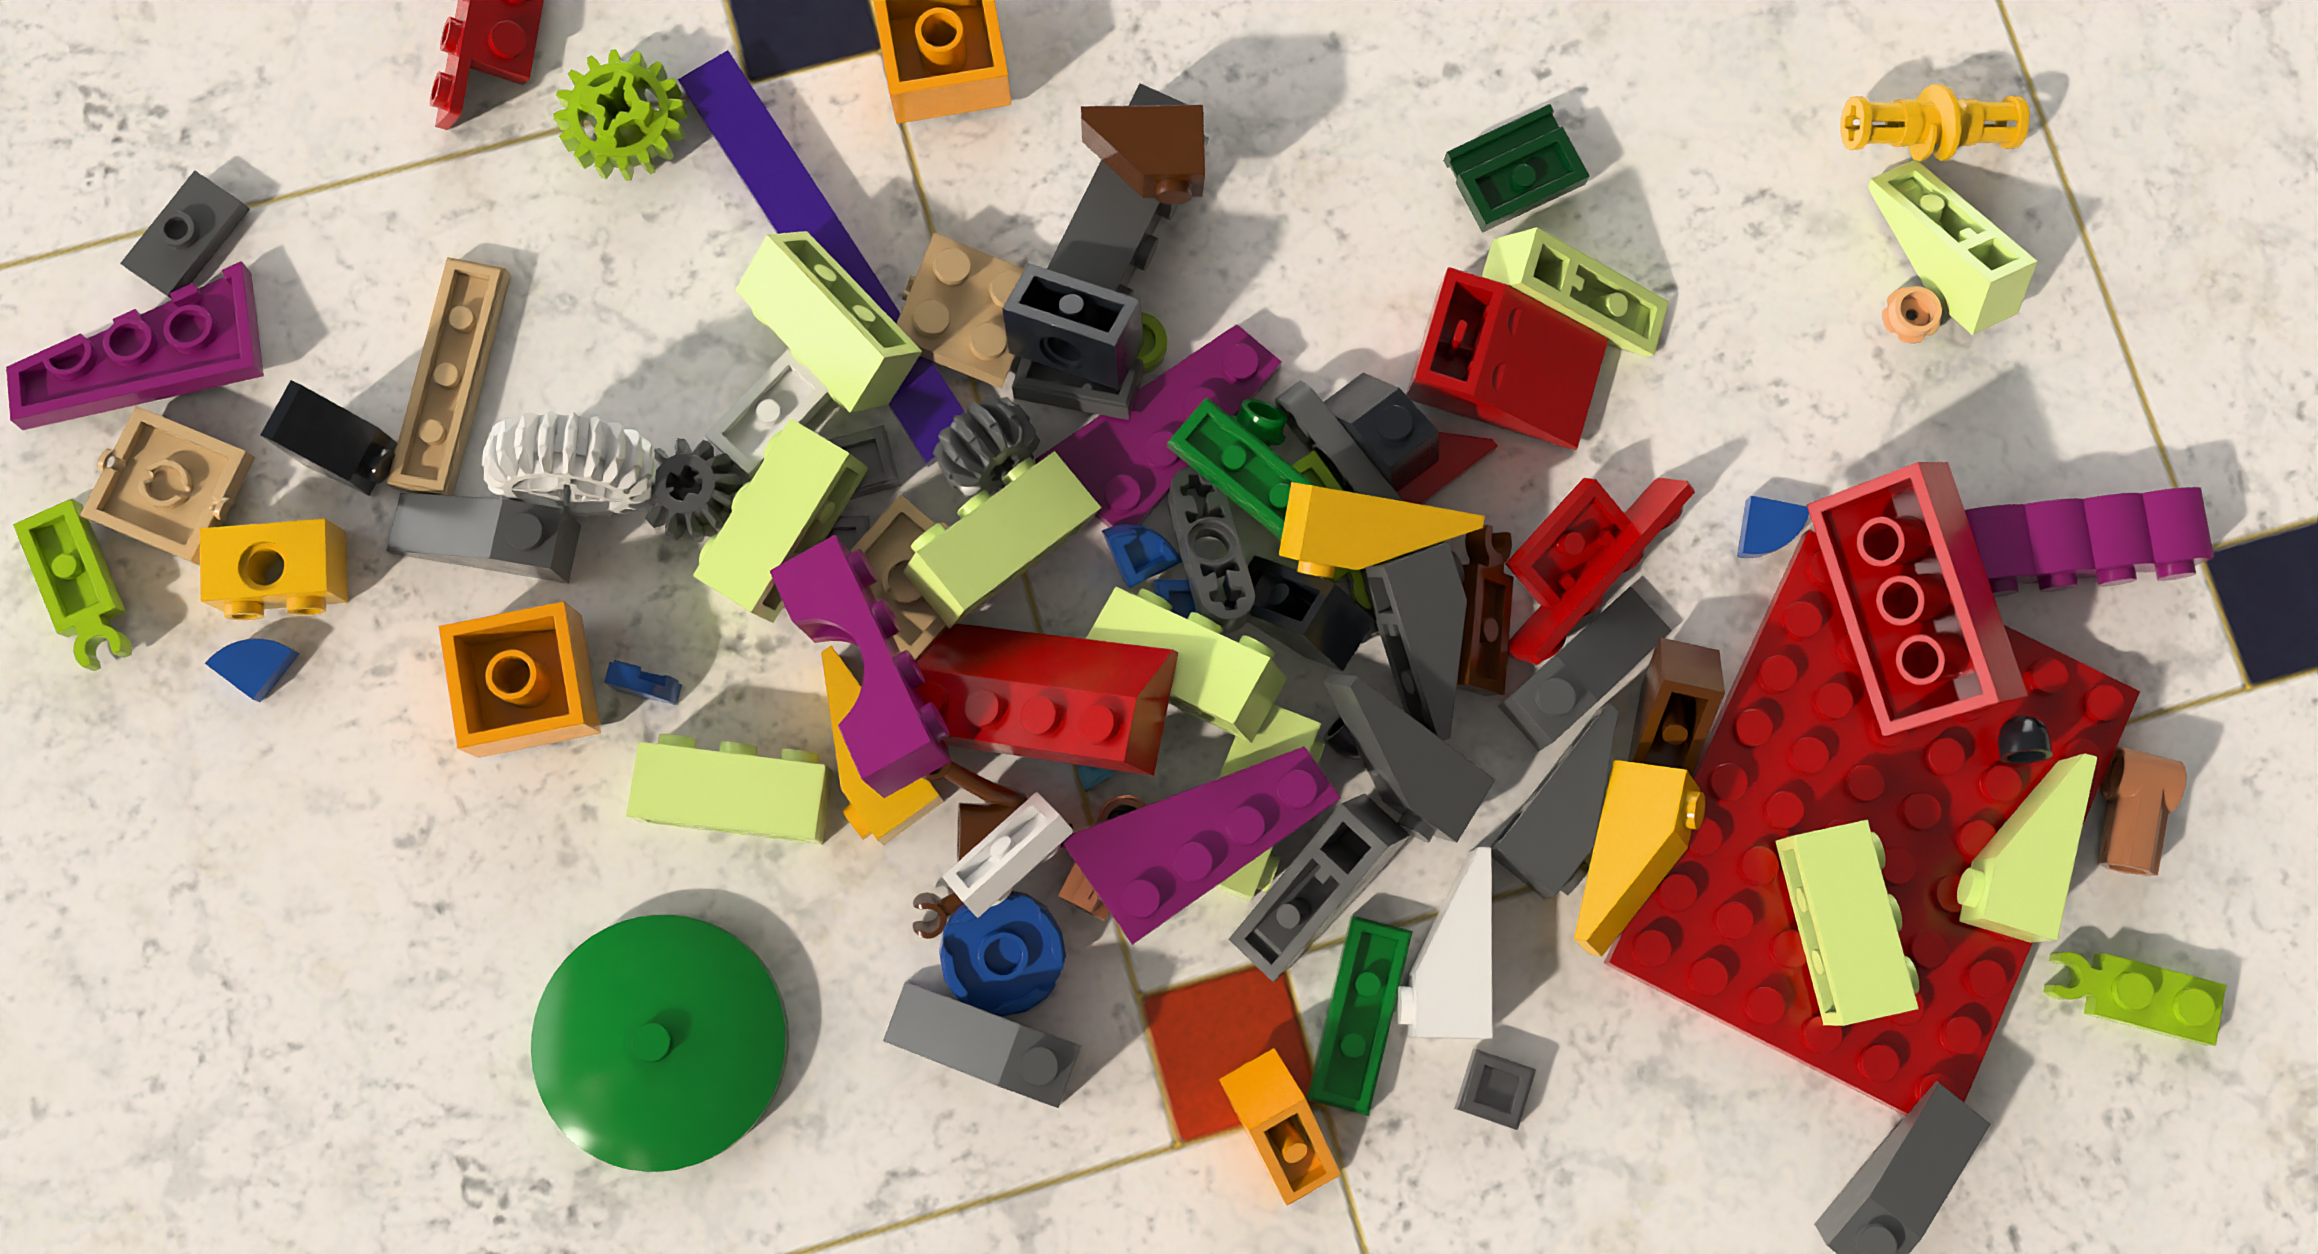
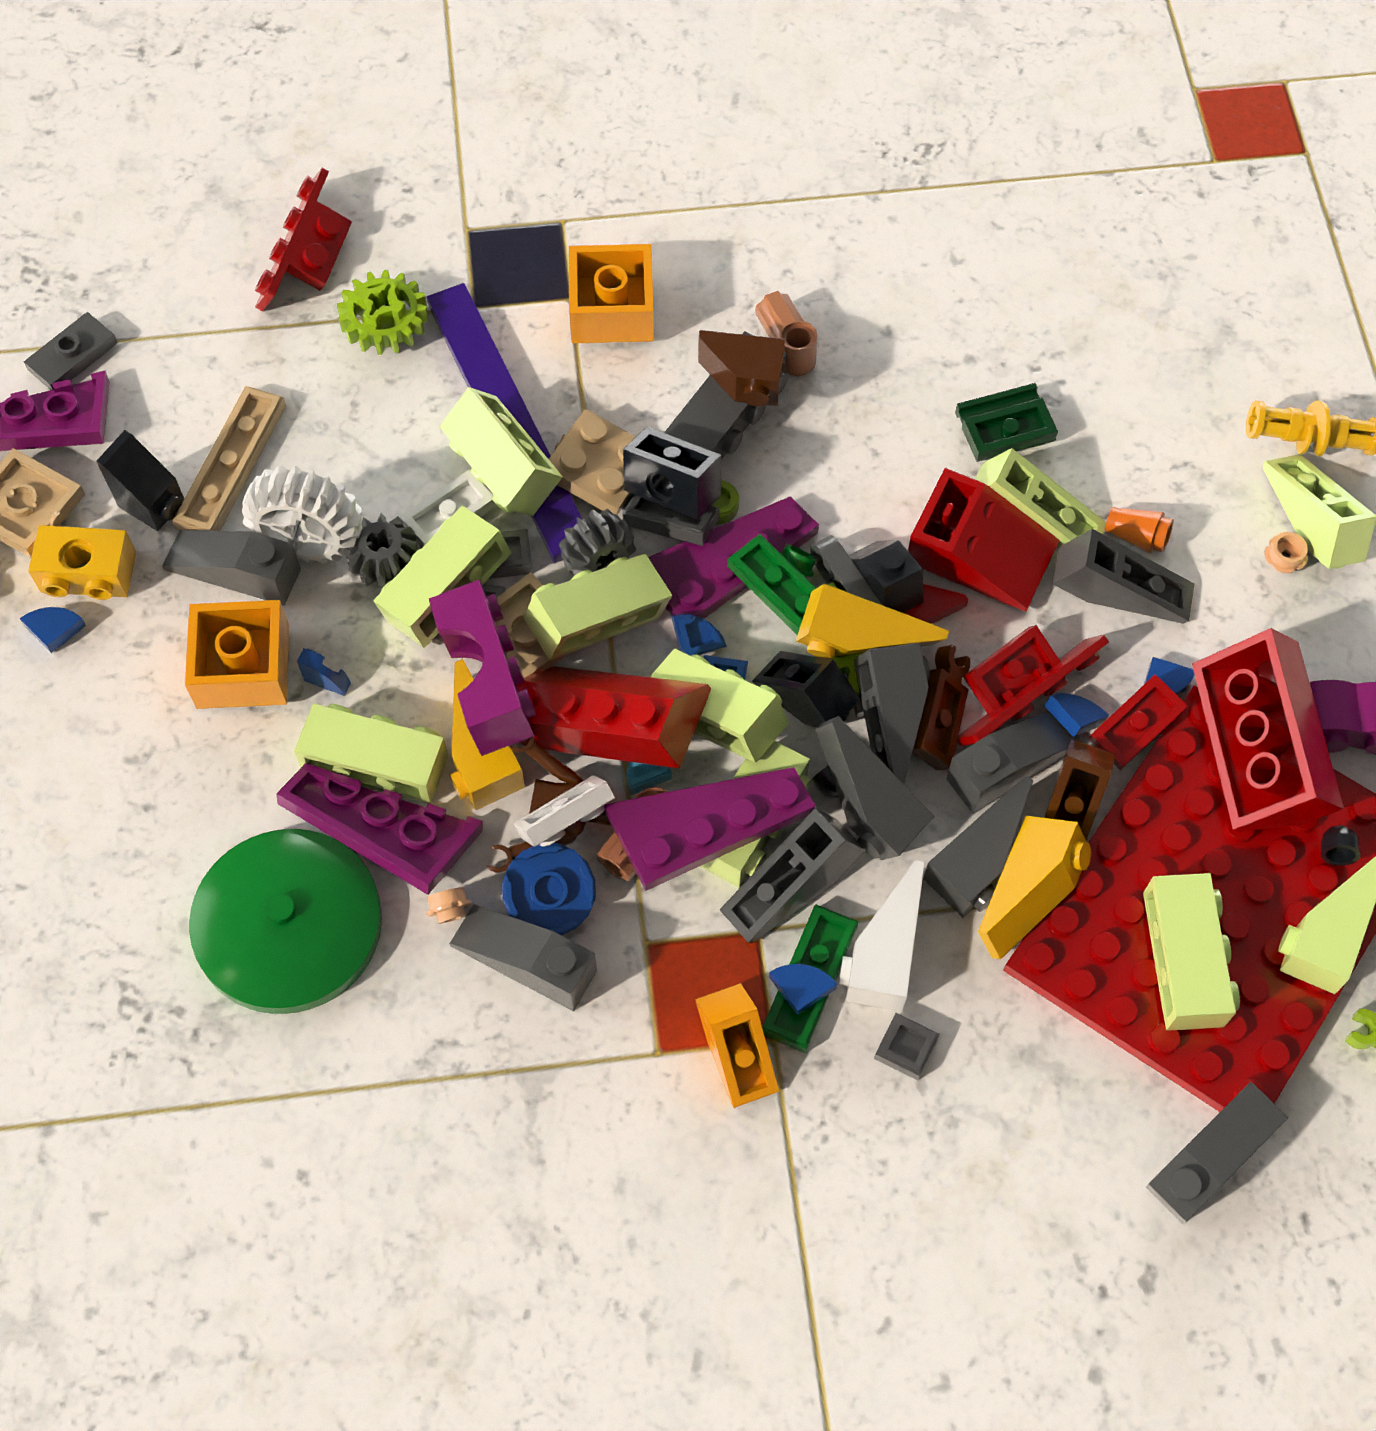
camera: 15 degrees right, 15 degrees down
(771, 896) = (393, 833): none -> magenta wing
(873, 991) = (448, 905): none -> light nougat plate
(1197, 67) = (783, 321): none -> nougat piece
(1202, 572) = (756, 622): dark grey beam -> none
(1353, 1037) = (802, 985): none -> blue tile
(1659, 593) = (1075, 713): none -> blue tile
(1698, 387) = (1120, 578): none -> dark grey slope
(1715, 305) = (1140, 528): none -> orange cone
(1743, 596) = (1138, 721): none -> red plate

